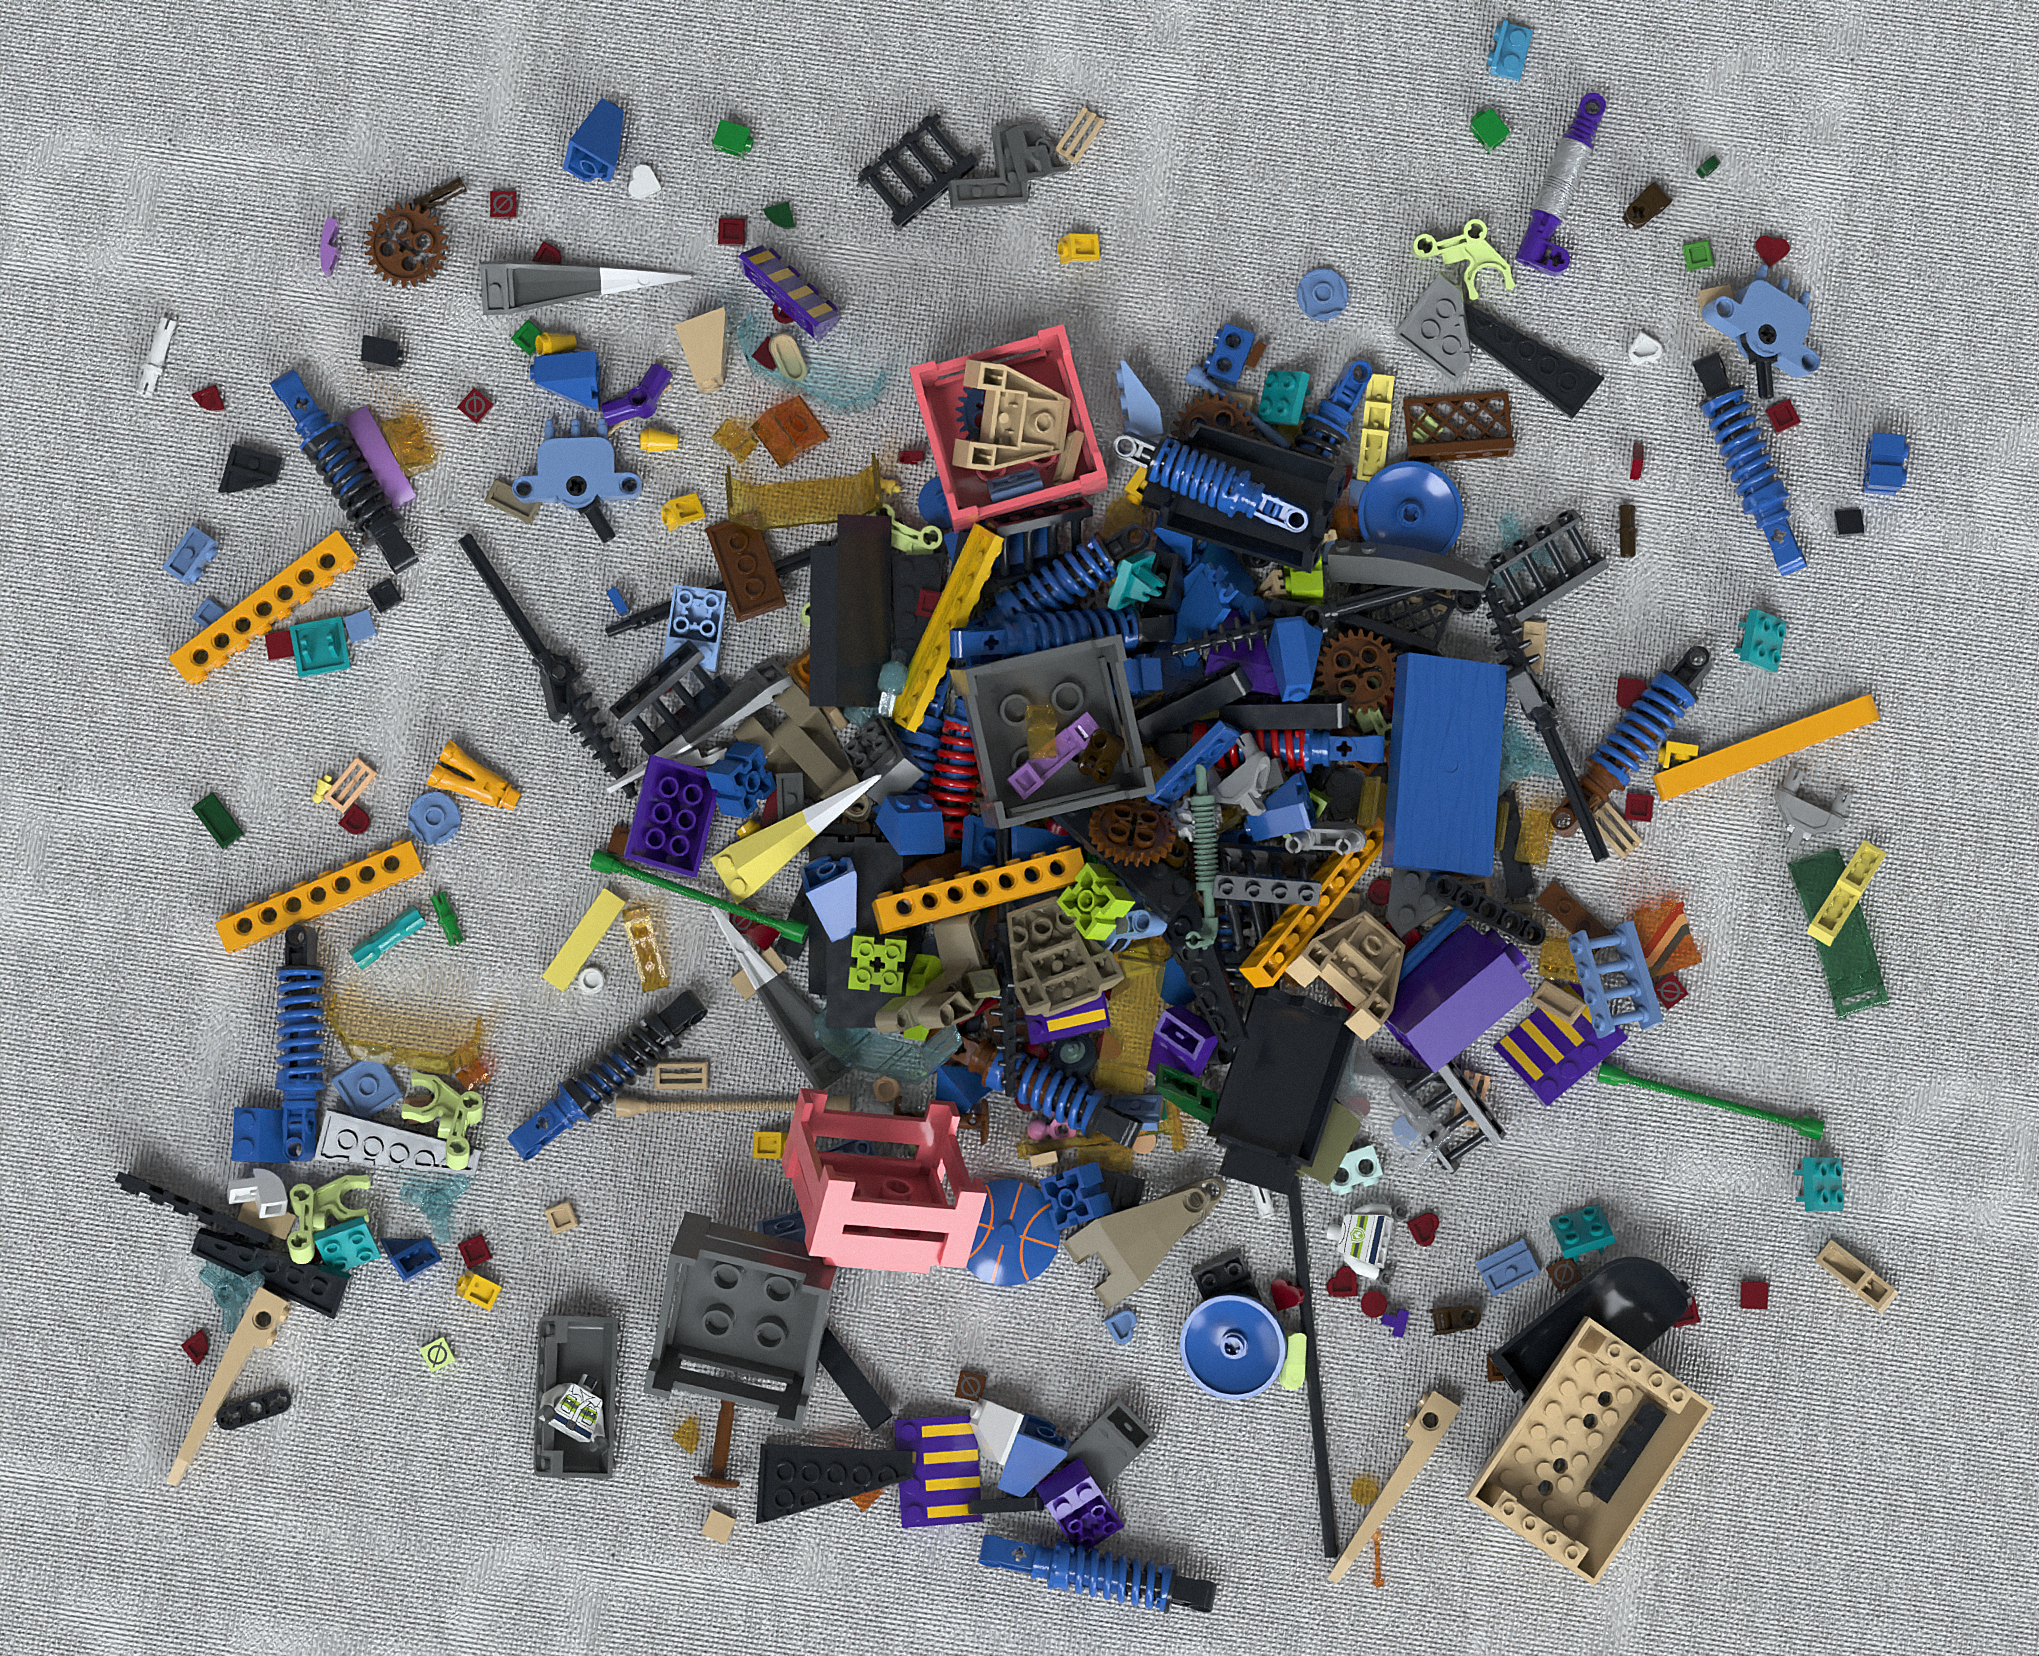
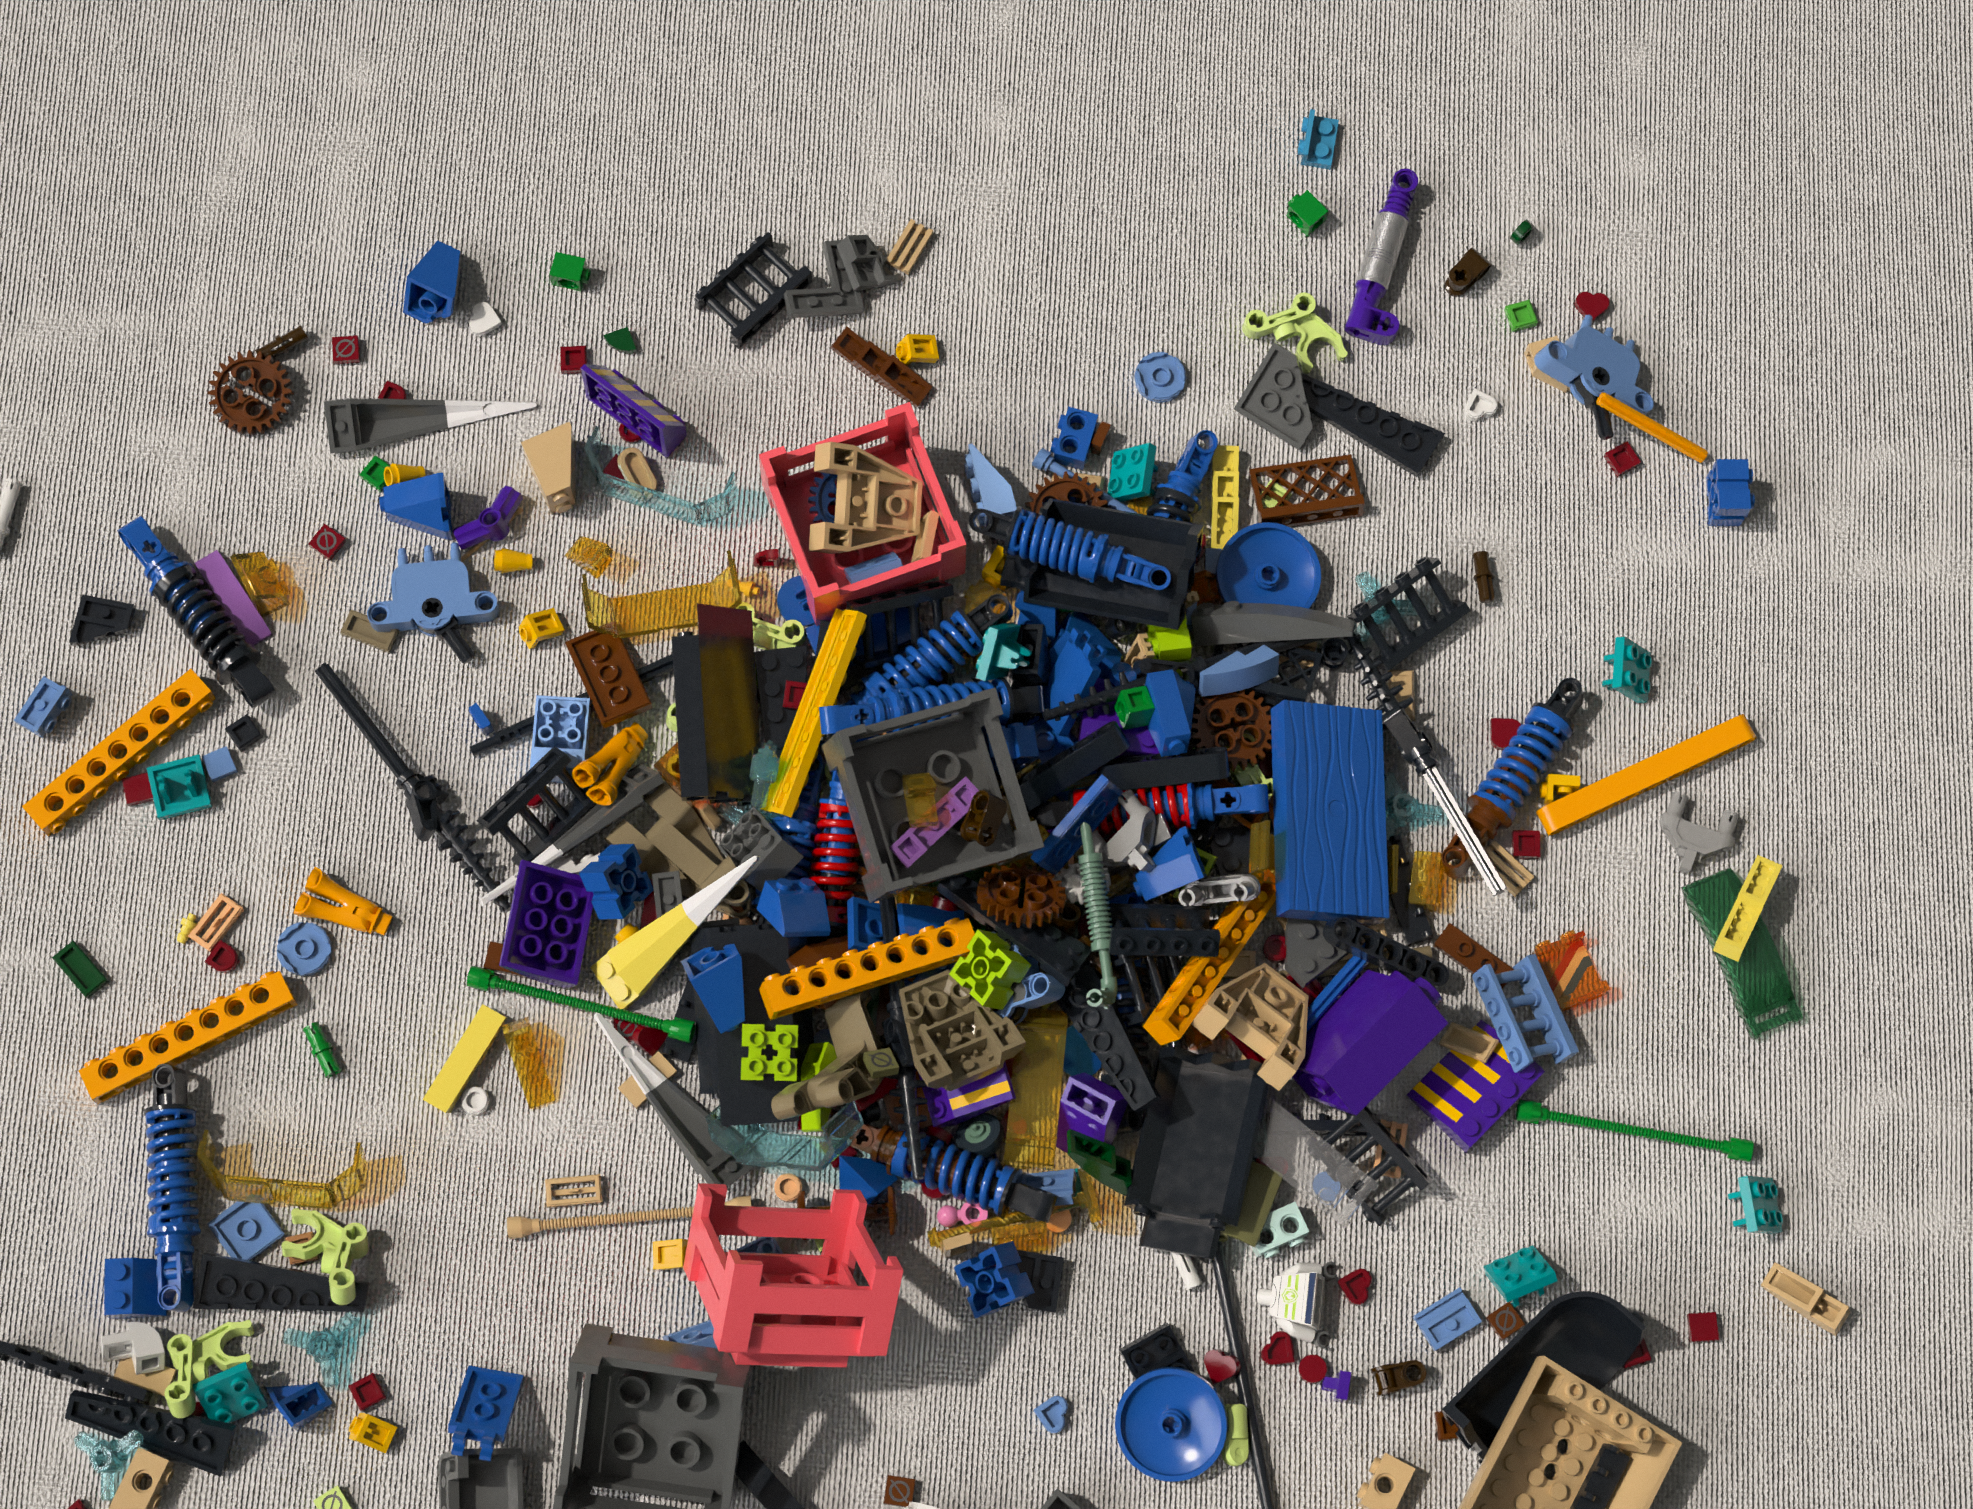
camera: 15 degrees left, 10 degrees down
(208, 613) = (62, 761): medium blue tile -> none
(209, 399) = (58, 555): dark red tile -> none
(328, 253) = (173, 405): medium lavender slope -> none
(373, 947) = (245, 1085): teal axle -> none
(381, 354) = (228, 496): black slope -> none
(475, 1075) = (359, 1206): clear orange wheel -> none
(561, 1217) = (456, 1349): tan tile -> none
(583, 1096) = (473, 1218): black piece -> none
(585, 1278) = (484, 1409): none -> blue tile
(753, 648) = (622, 753): none -> light orange piece
(789, 431) = (643, 542): clear orange slope -> none
(1013, 1235) = (931, 1328): blue dish -> none
(1040, 263) = (880, 367): none -> reddish brown slope
(1140, 1237) = (1064, 1316): dark tan piece -> none
(1260, 650) = (1134, 707): none -> green brick
(1369, 617) = (1239, 672): none -> medium blue slope
(1557, 960) = (1463, 1001): clear yellow bracket -> none
(1636, 460) = (1485, 510): dark red tile -> none
(1670, 991) = (1580, 1023): dark red tile -> none
(1760, 492) = (1584, 486): piece -> none
(1814, 389) = (1651, 427): none -> light orange axle
(1849, 523) = (1700, 555): black slope -> none

